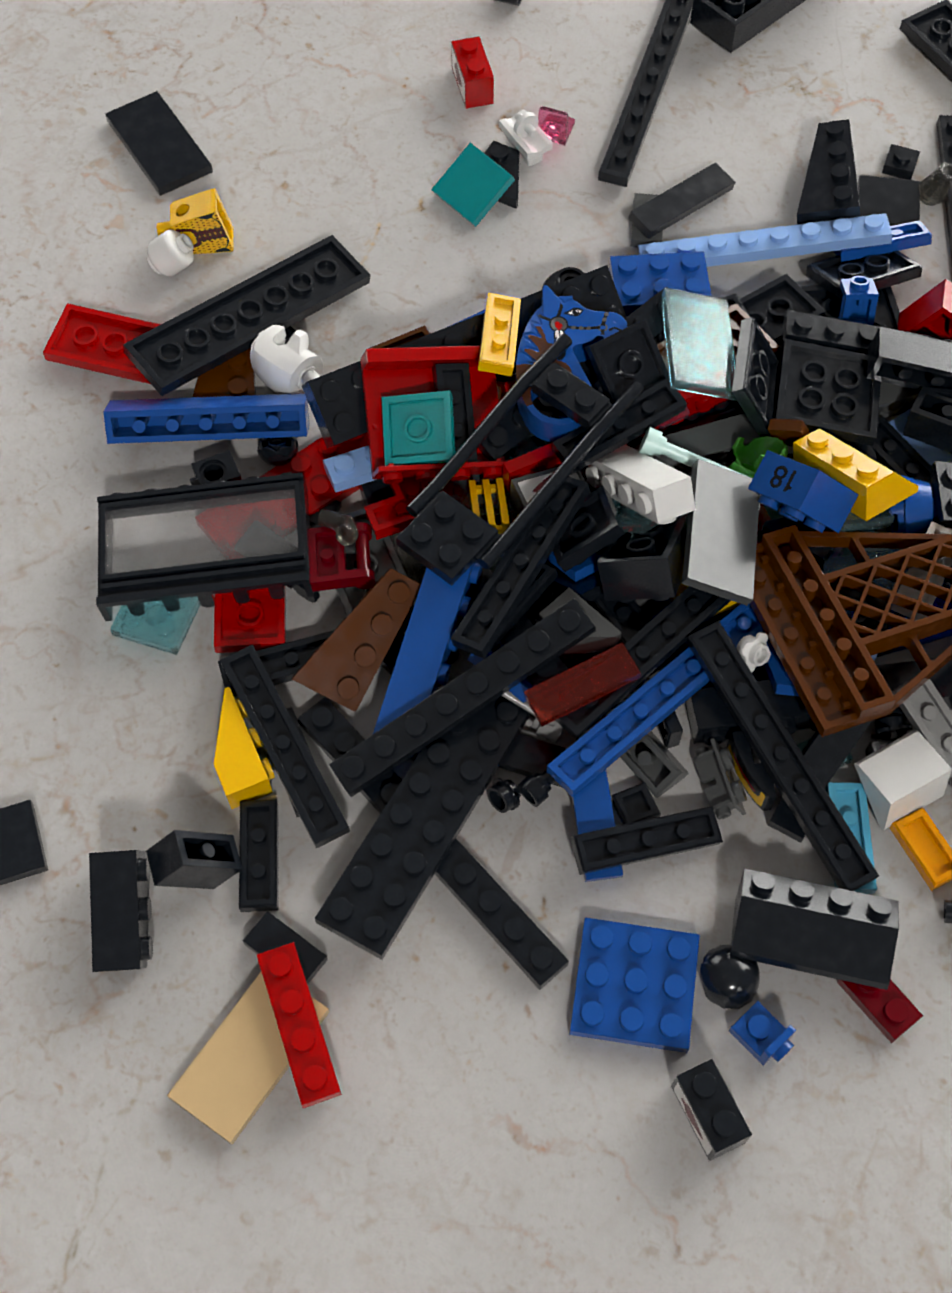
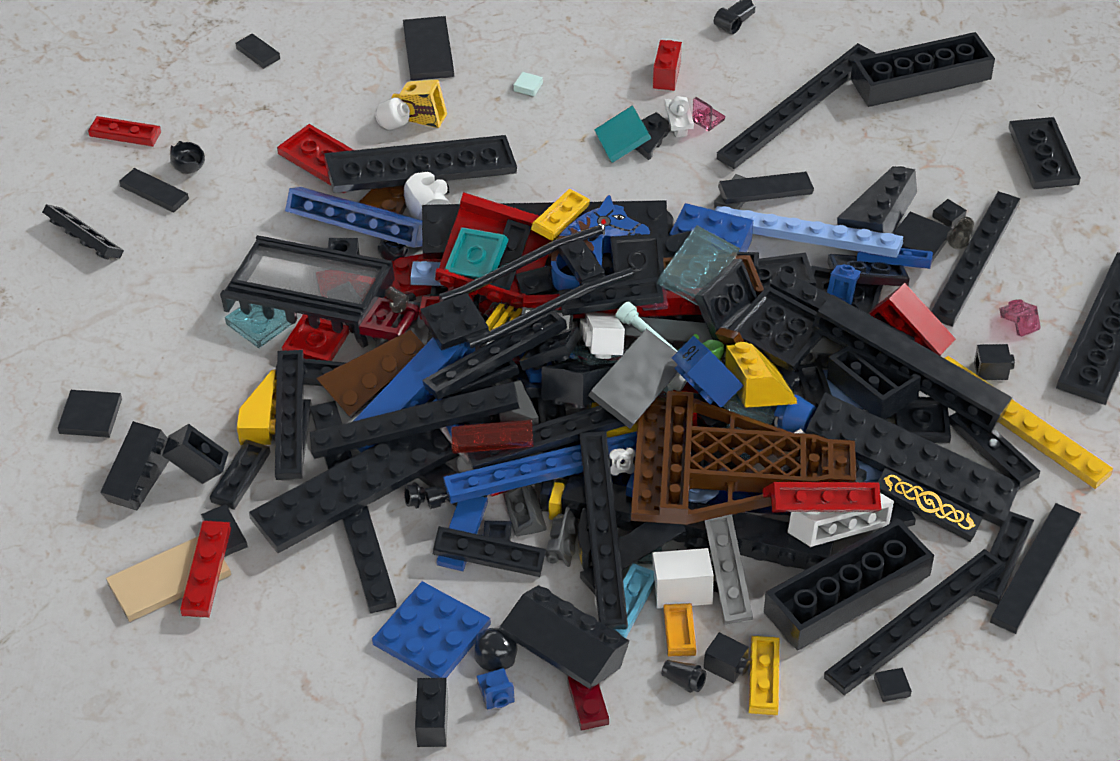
camera: 25 degrees right, 15 degrees down
(313, 152) = (528, 84): none -> light aqua tile
(690, 735) = (555, 503): none -> yellow tile

